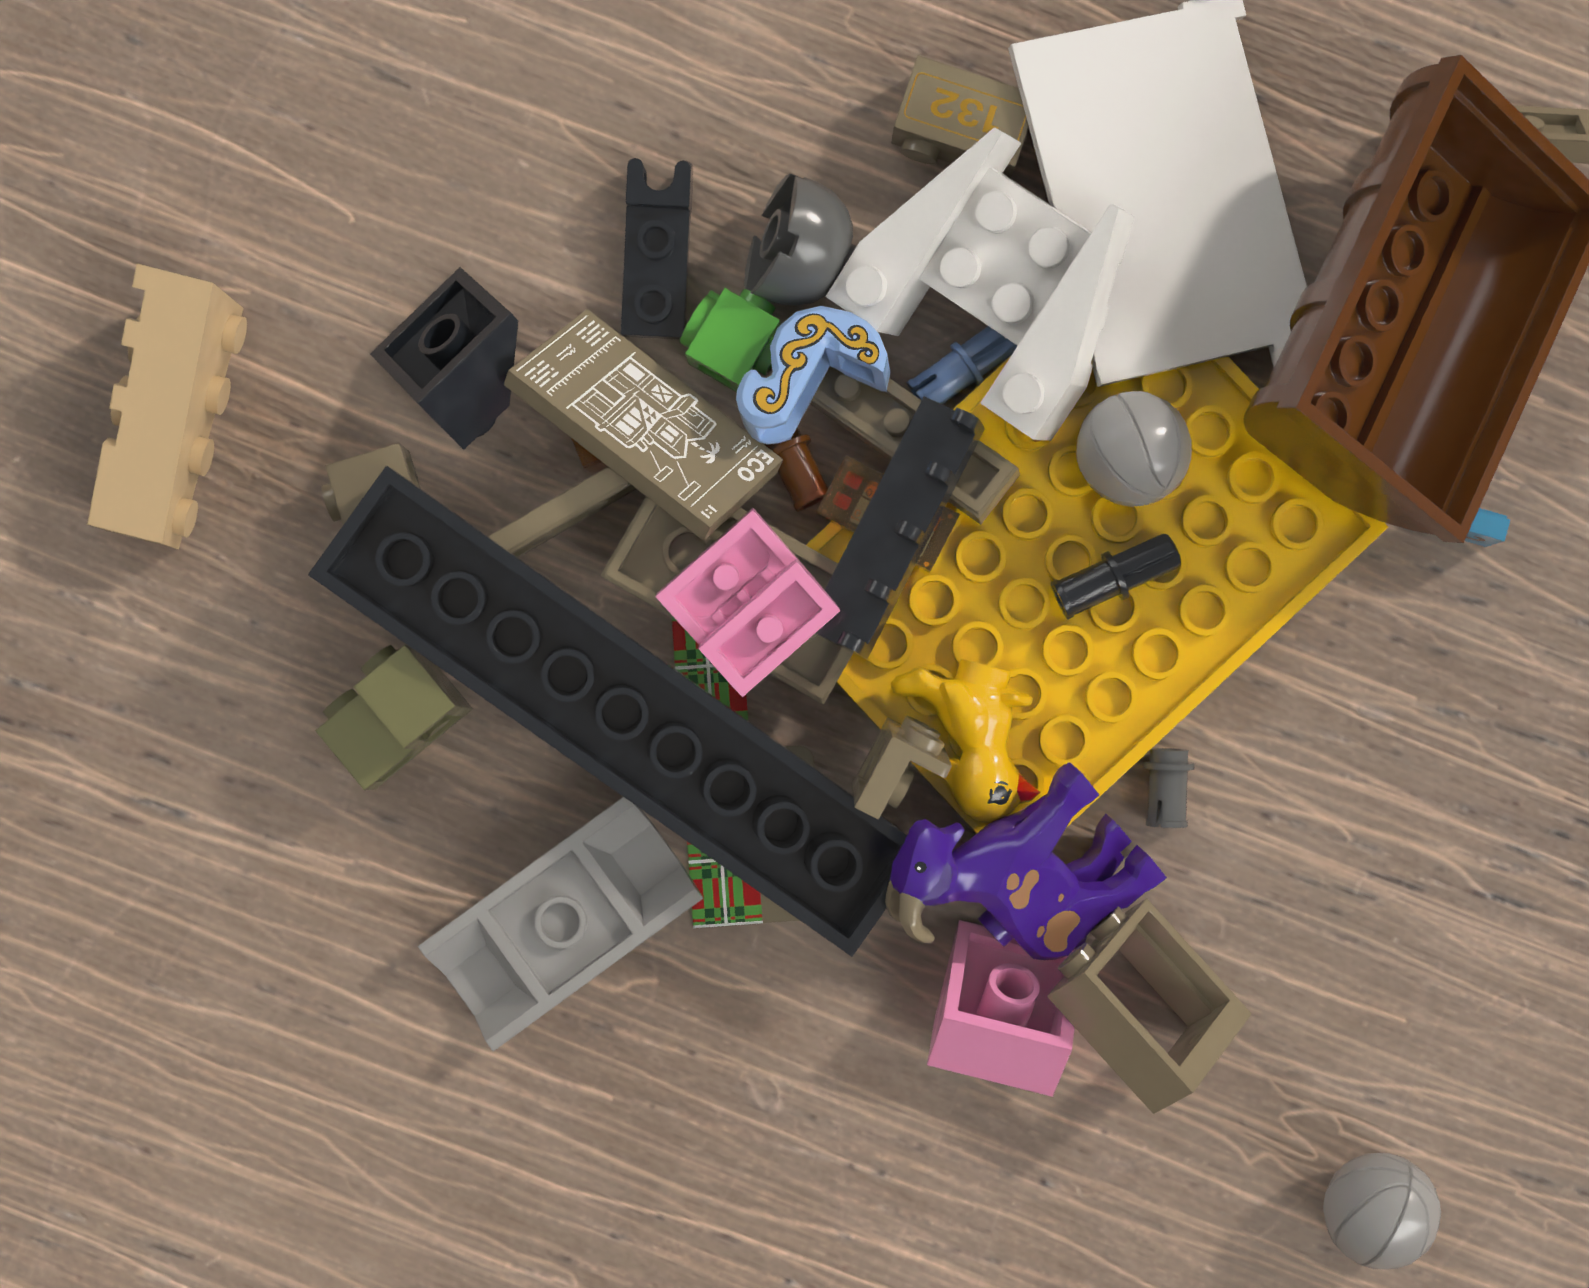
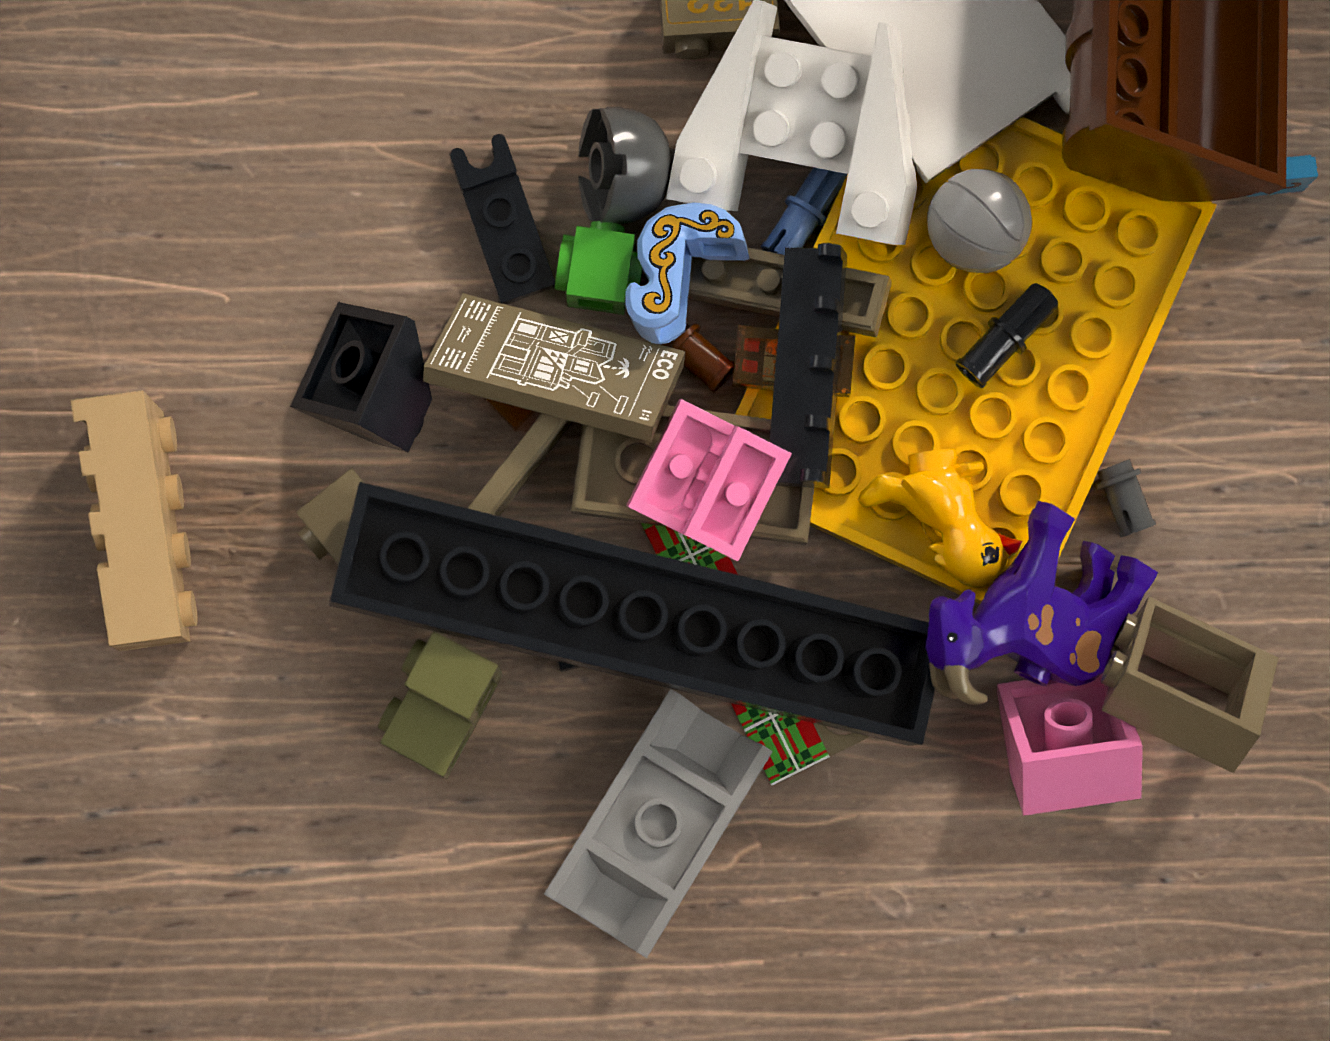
camera: 30 degrees left, 5 degrees down
(886, 772) = (884, 572): dark tan bracket -> none

